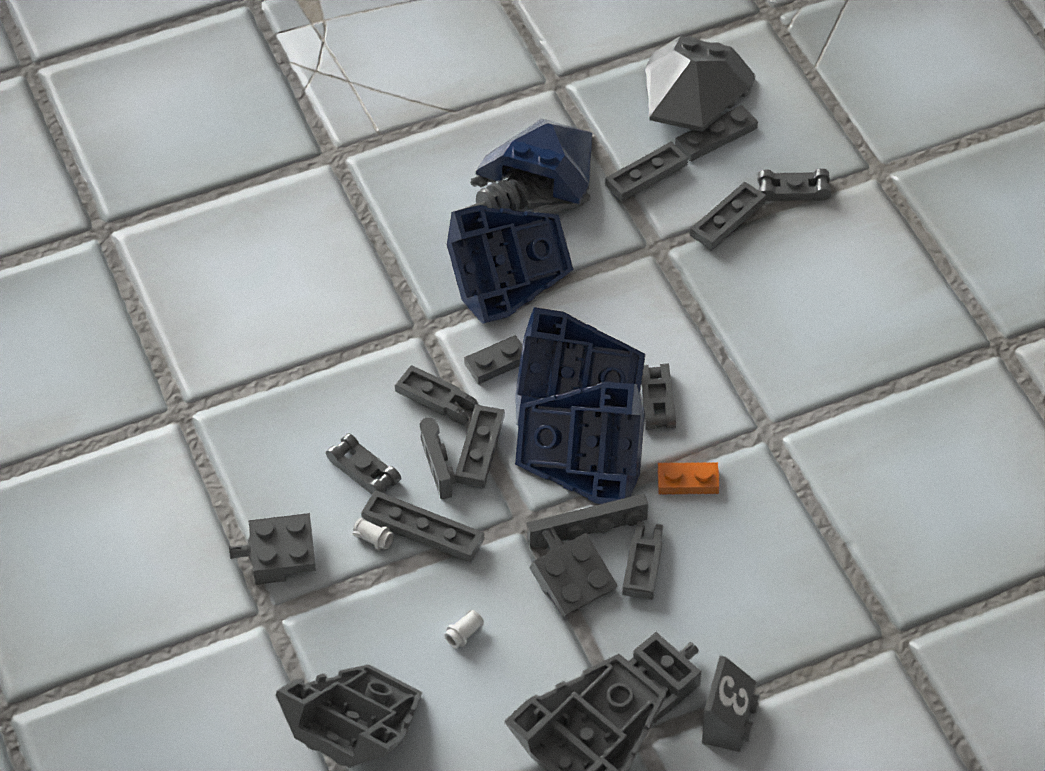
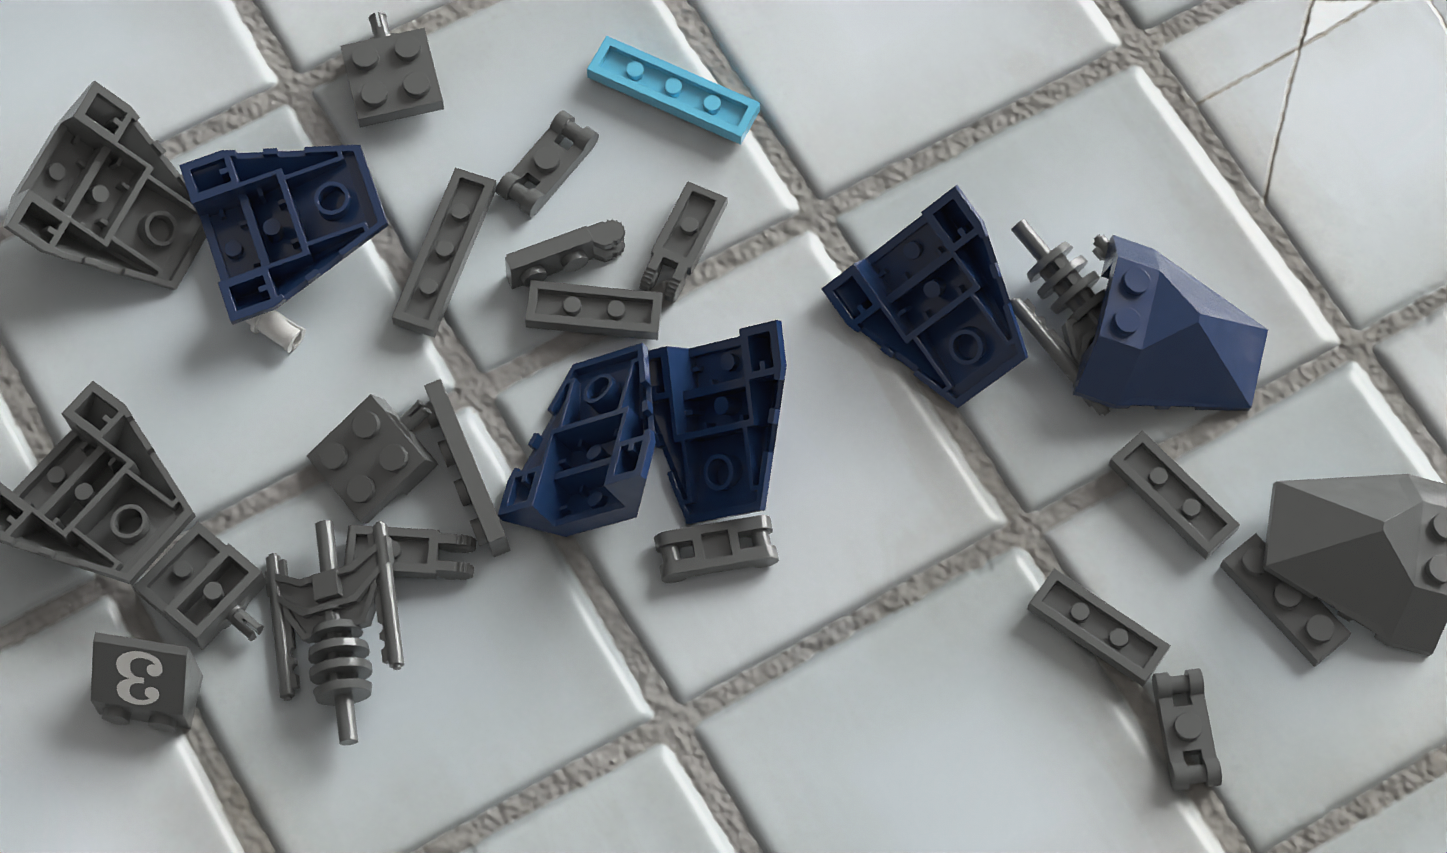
camera: 80 degrees right, 15 degrees up
(321, 390) = (673, 90): none -> medium azure plate
(374, 534) = (423, 199): white pin -> none
(396, 607) = (281, 218): none -> dark blue wedge
(494, 359) = (754, 302): dark grey plate -> none
(683, 597) = (331, 613): none -> dark grey bar
(688, 478) = (567, 607): orange plate -> none

